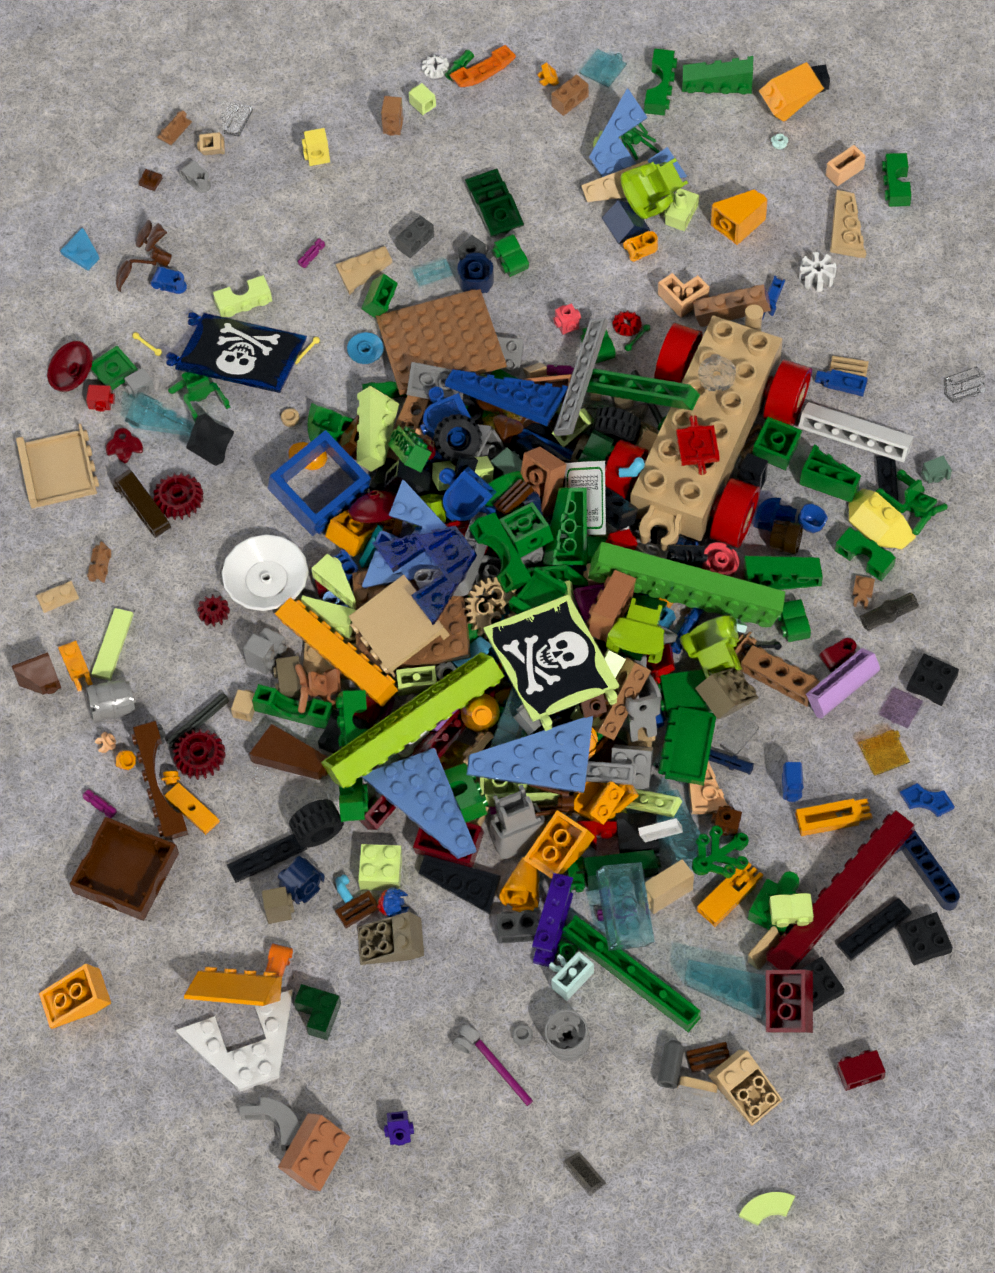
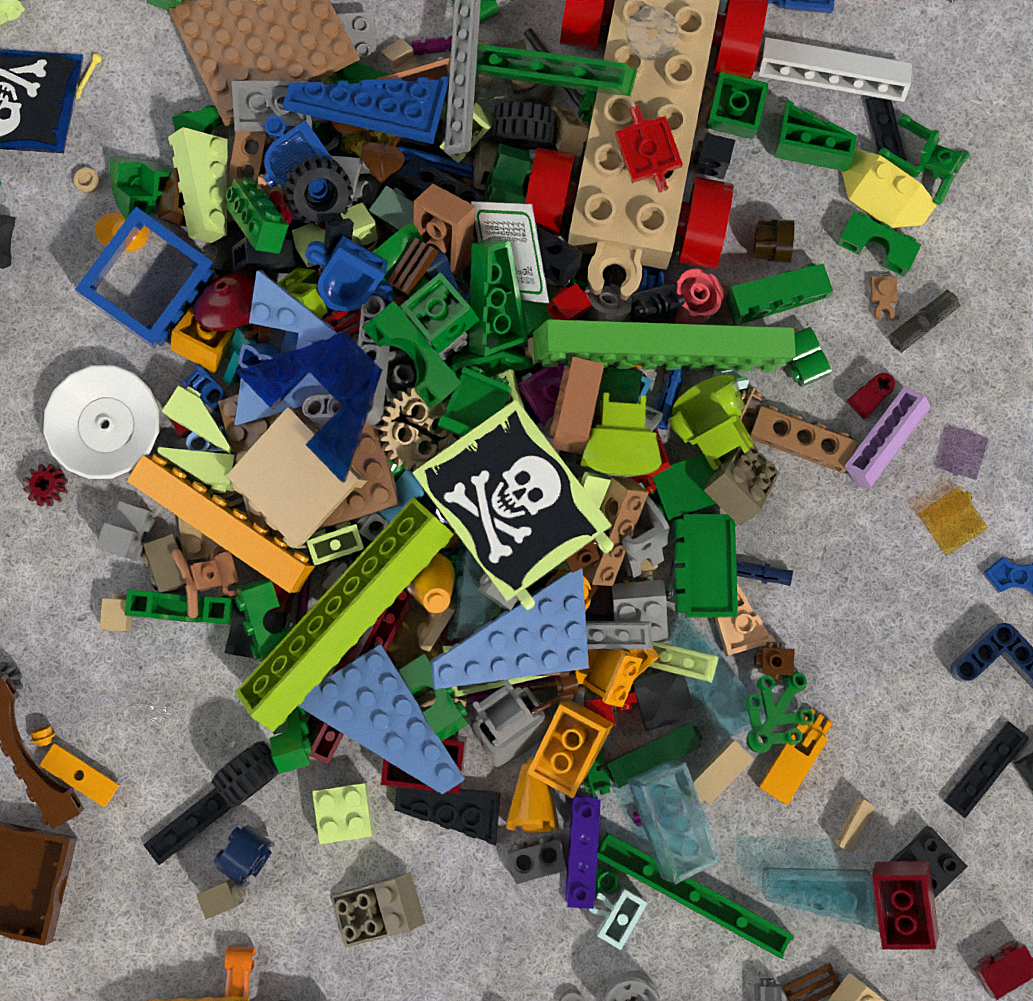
camera: 15 degrees left, 20 degrees up
(188, 747) = (87, 699): dark red gear -> none
(198, 719) = (60, 646): pearl dark grey axle -> none
(287, 753) = (185, 672): reddish brown slope -> none
(338, 912) = (341, 857): reddish brown tile -> none
(342, 889) = (299, 850): medium azure arm -> none
(363, 342) = (161, 50): dark azure dish -> none
(390, 902) = (370, 862): blue piece -> none
(634, 470) = (566, 195): medium azure arm -> none
(660, 830) = (697, 702): white tile -> none
(760, 910) = (860, 764): green brick -> none
(770, 511) = (747, 203): clear blue brick -> none
(777, 645) = (787, 395): black hinge -> none
(791, 909) = (887, 782): yellowish green brick -> none
(792, 781) = (849, 592): blue brick -> none
(812, 518) = (802, 205): blue hair -> none
(823, 817) = (896, 629): light orange hinge -> none
(842, 891) = (940, 740): dark red brick -> none
(932, 679) = (997, 407): black brick -> none
(936, 470) = (947, 106): sand green brick -> none

